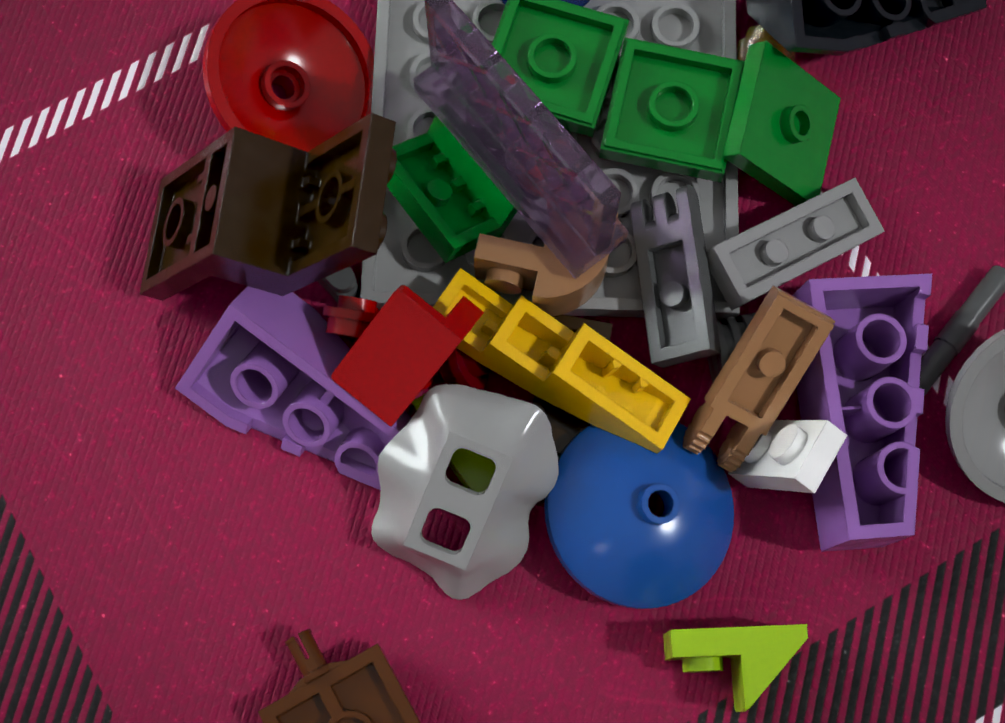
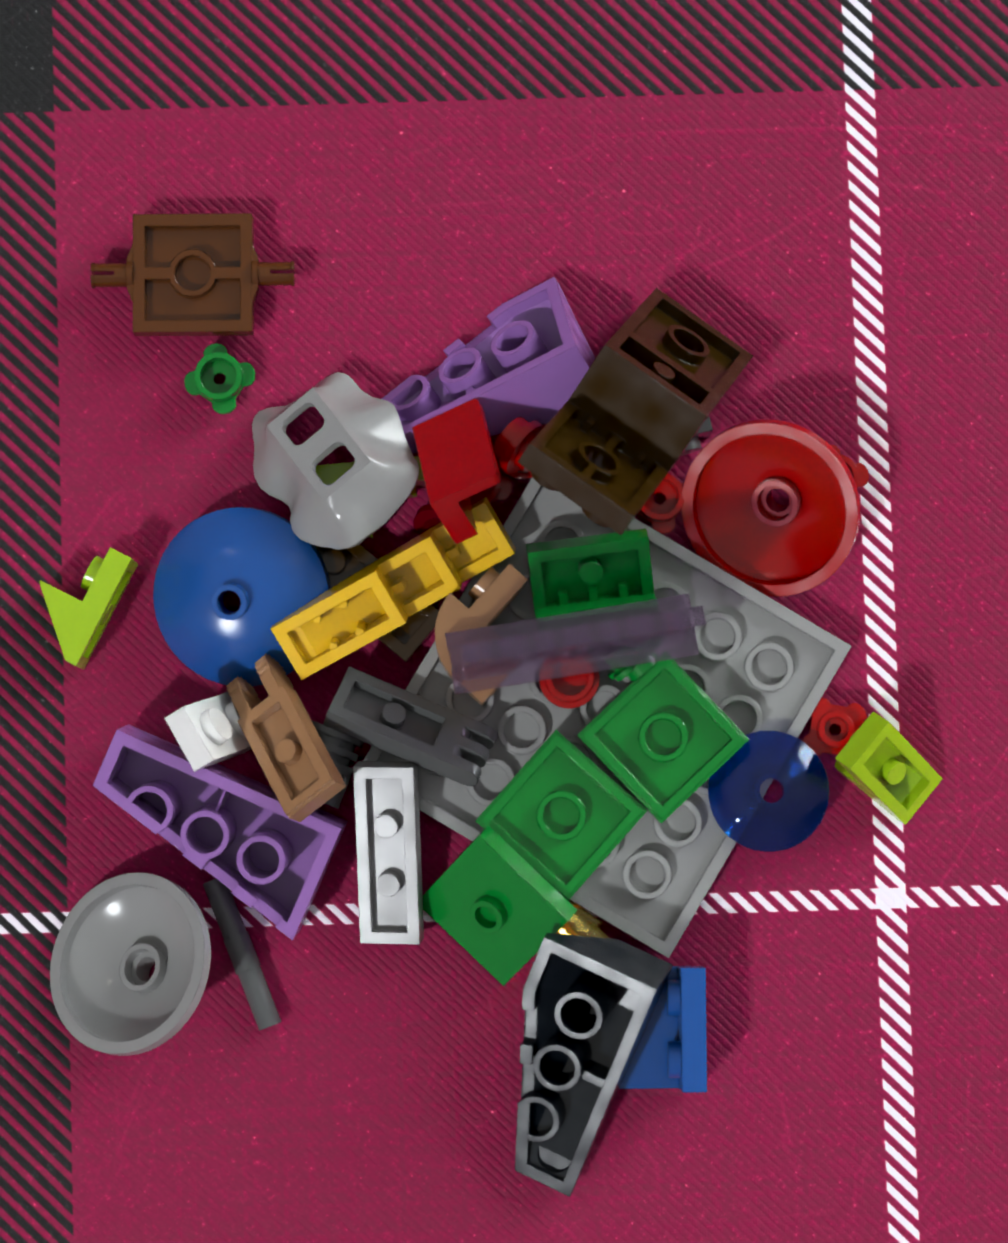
camera: 115 degrees right, 10 degrees up
(430, 637) = (218, 361): none -> green plate

